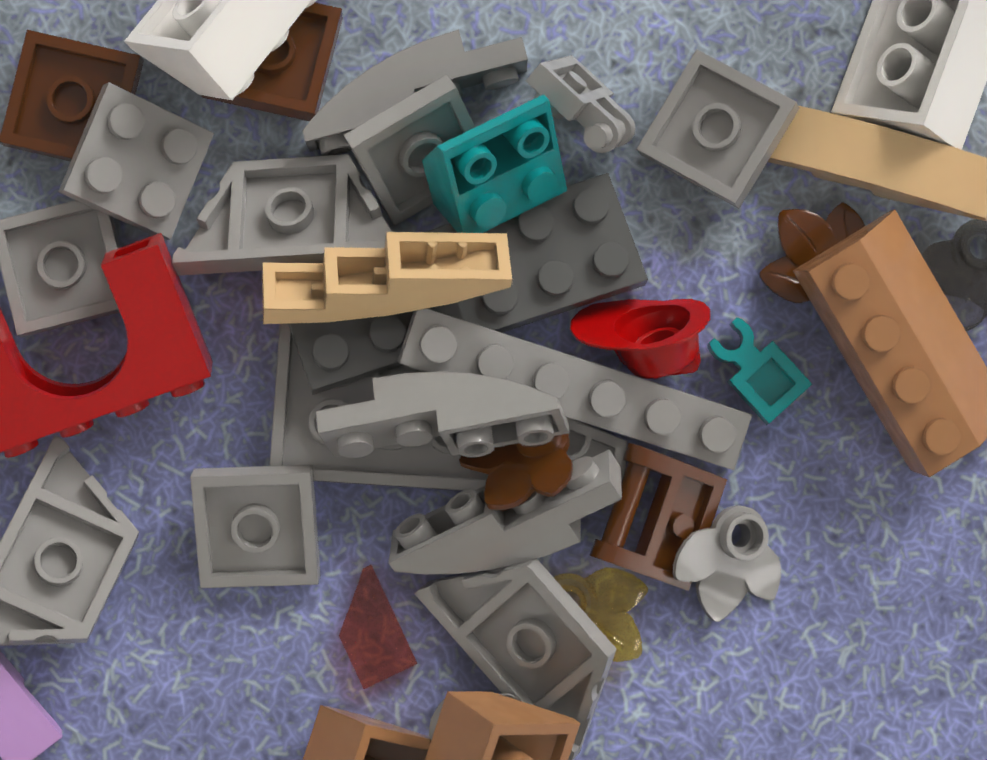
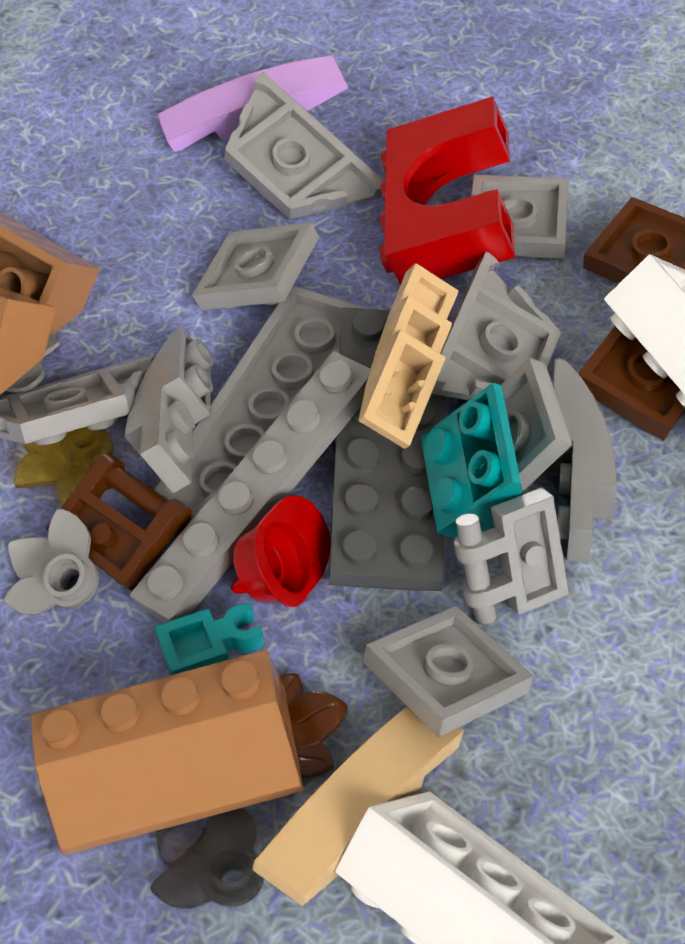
camera: 115 degrees right, 35 degrees down
(136, 161) = (579, 265): light grey plate -> none
(374, 633) = (132, 328): clear red tile -> none
(463, 408) = (273, 373): light grey slope -> none
(521, 469) = (214, 424): reddish brown plate -> none

